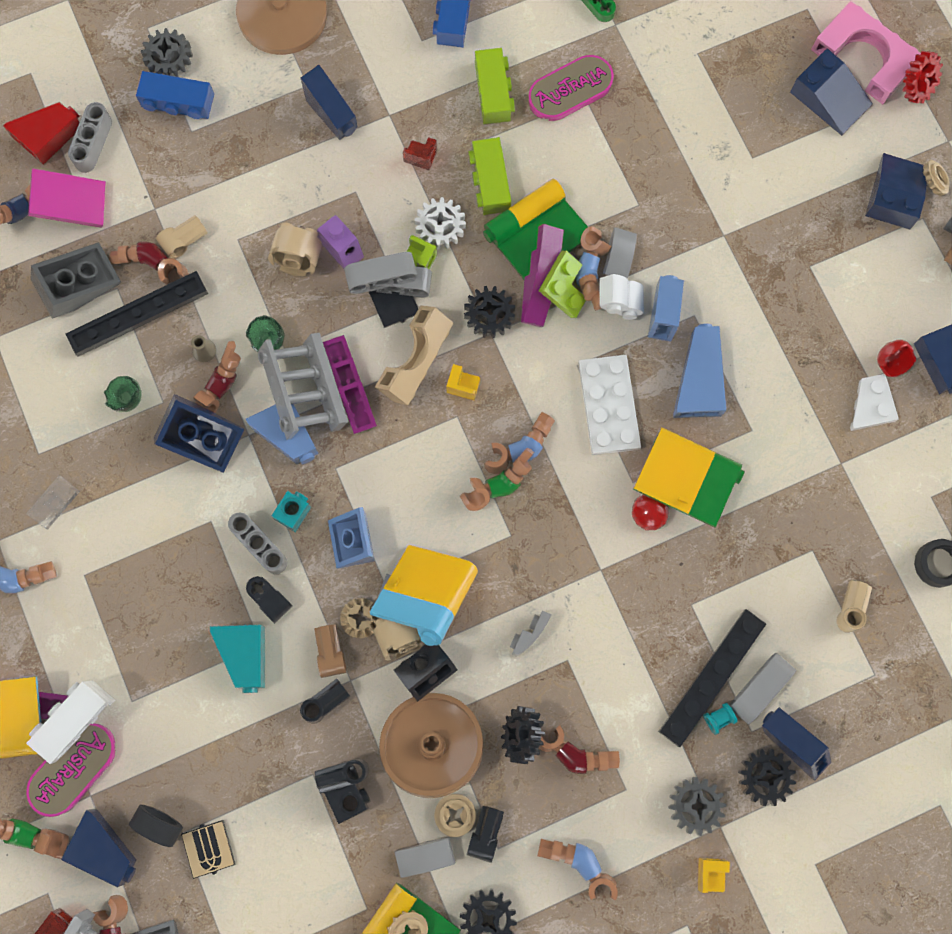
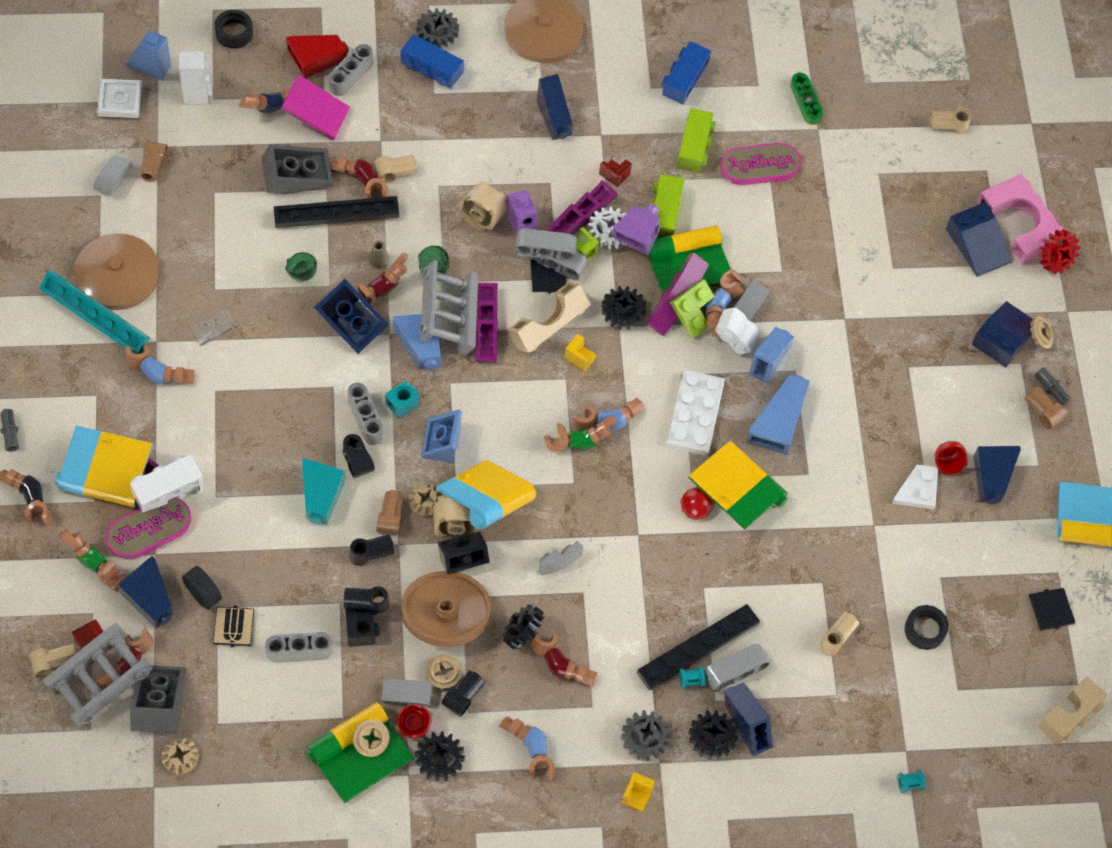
camera: 15 degrees right, 15 degrees down
(276, 855) = (289, 654): none -> light grey beam
(403, 215) = (578, 215): none -> magenta slope
(446, 890) = (414, 721): none -> red hair
(474, 215) = (639, 228): none -> medium lavender torso

